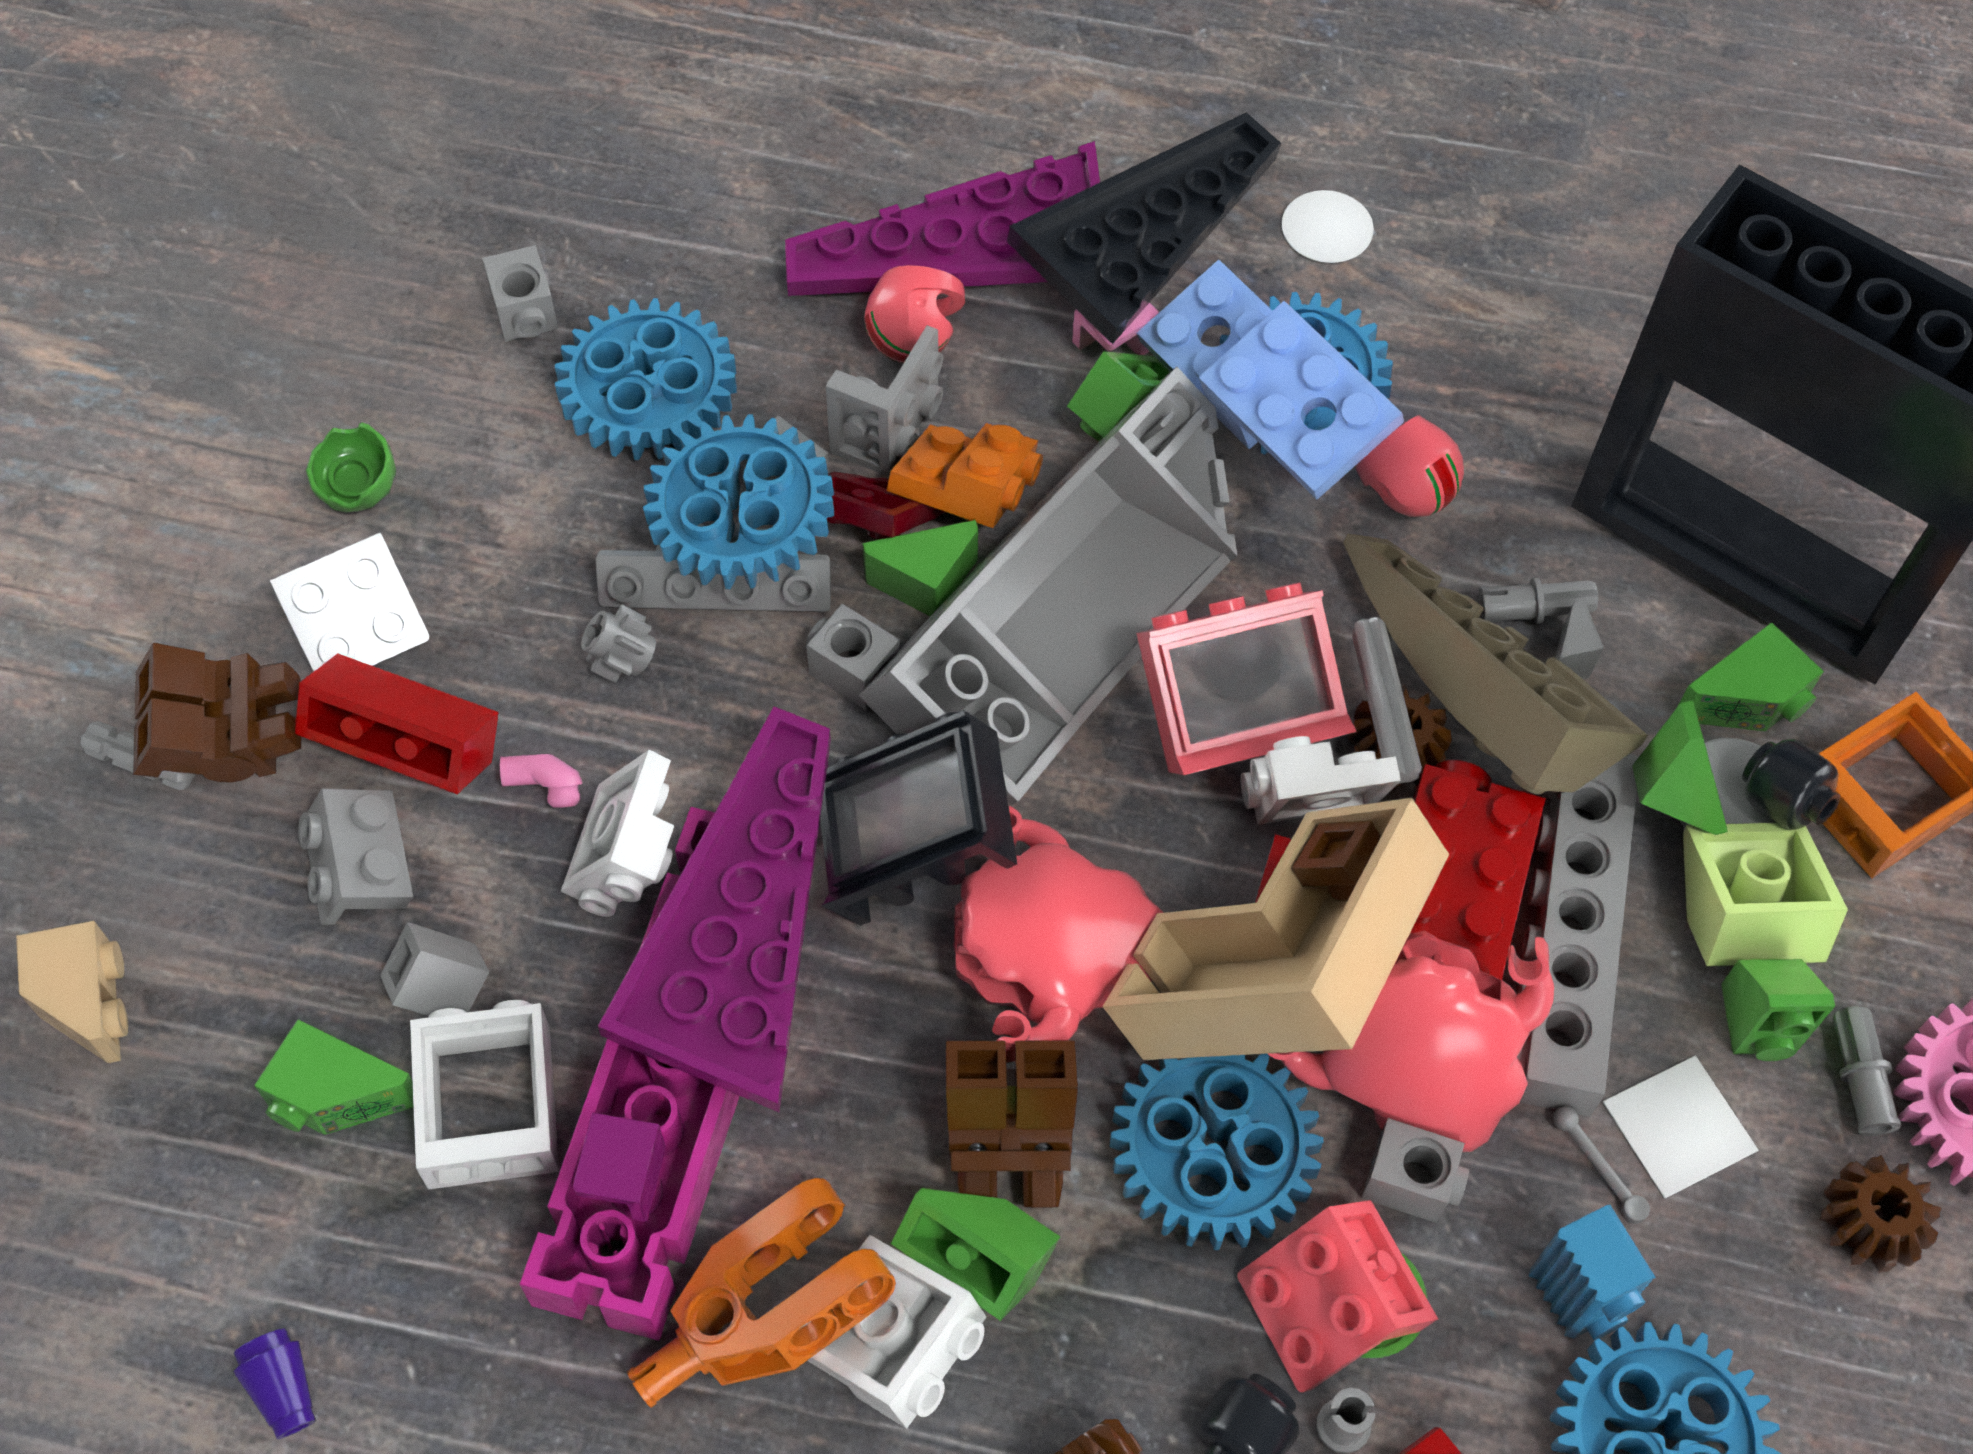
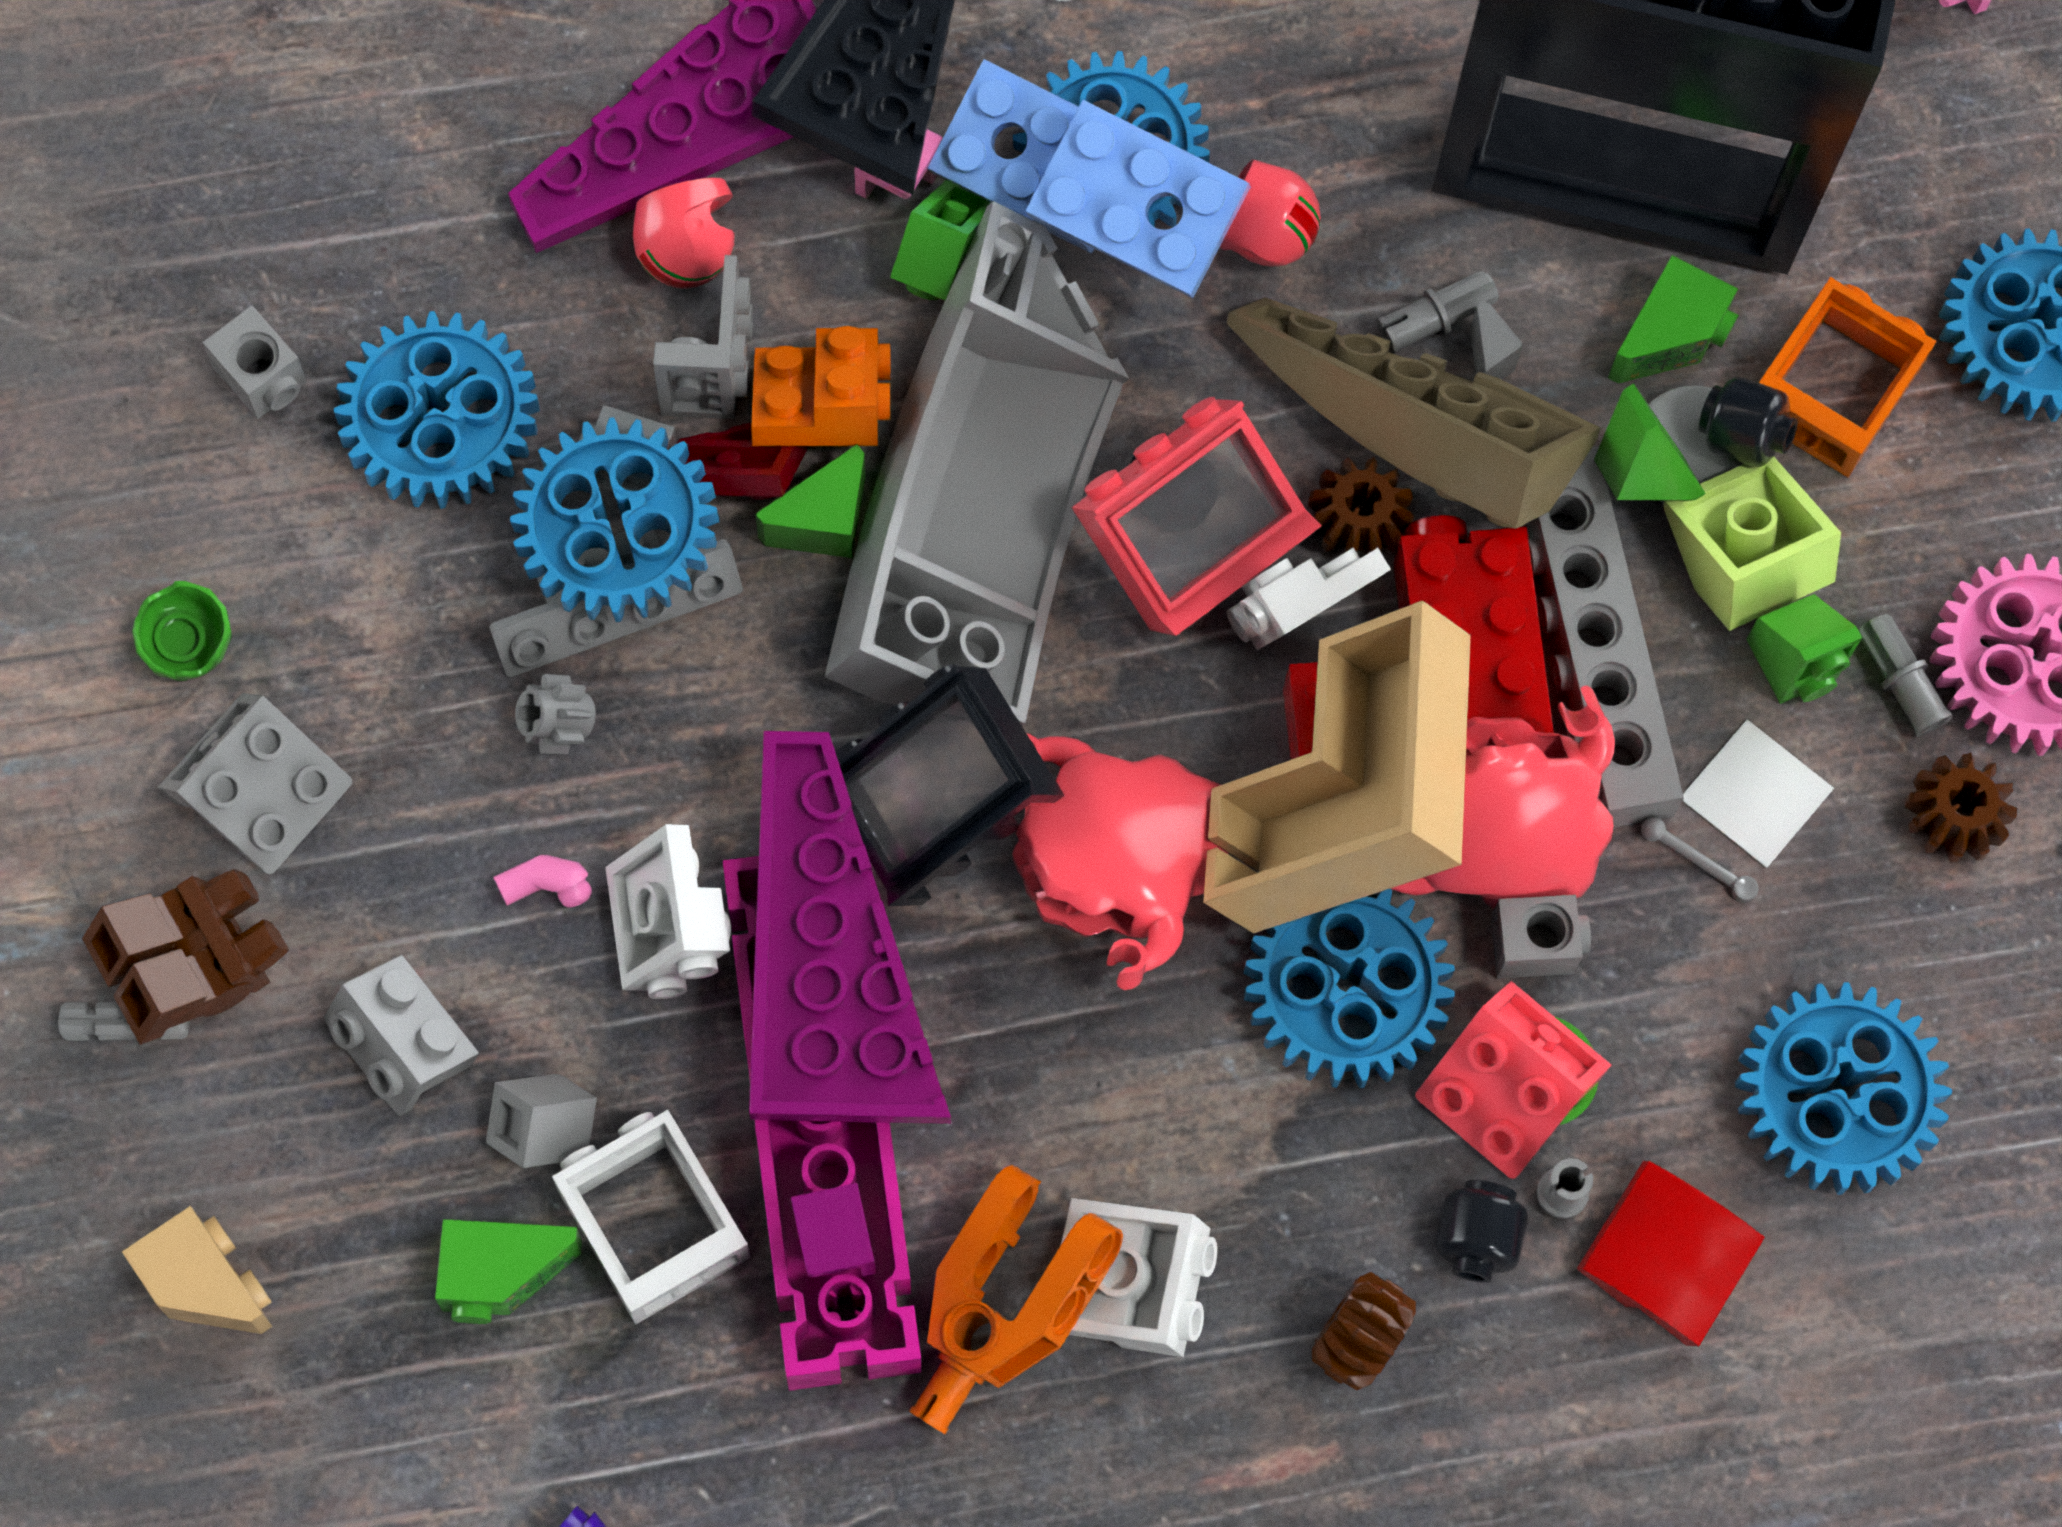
camera: 25 degrees left, 10 degrees up
(396, 723) = (376, 886): red brick -> none
(849, 632) = (801, 658): light grey brick -> none
(977, 1245) = (1177, 1168): bright green slope -> none
(1011, 1115) = (1159, 1039): reddish brown hips -> none
(1337, 856) = (1369, 676): reddish brown tile -> none
(1386, 696) = (1338, 481): light grey axle -> none
(1592, 1275) = (1733, 971): dark azure brick -> none

